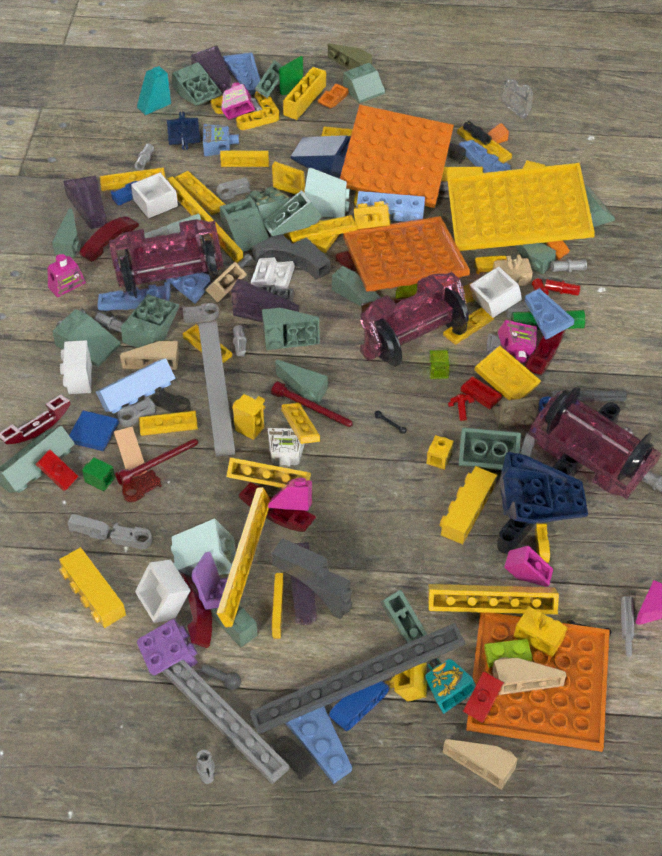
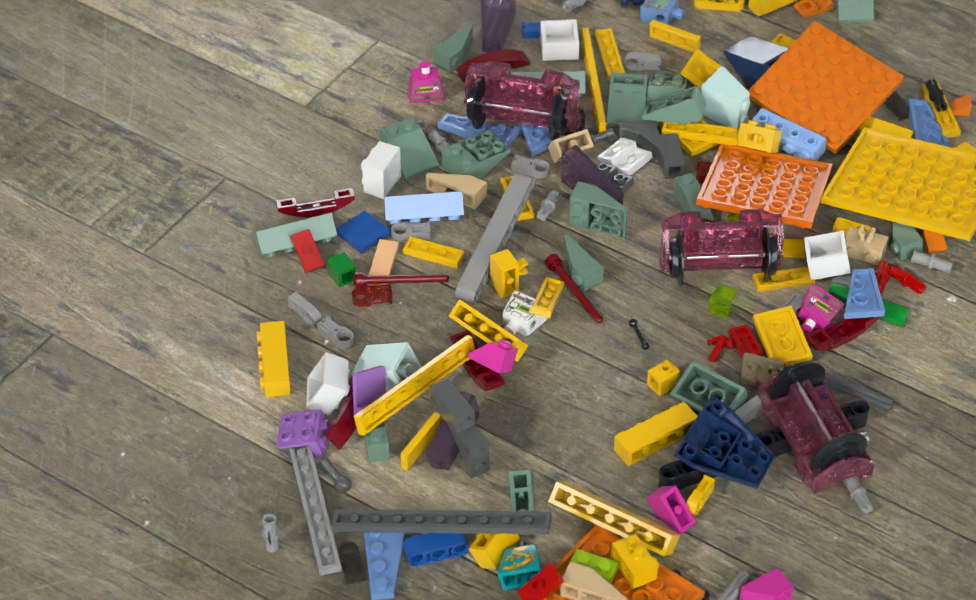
camera: 30 degrees right, 5 degrees down
(118, 181) = (537, 14): yellow tile -> none
(171, 402) = (447, 234): clear smoke piece -> none

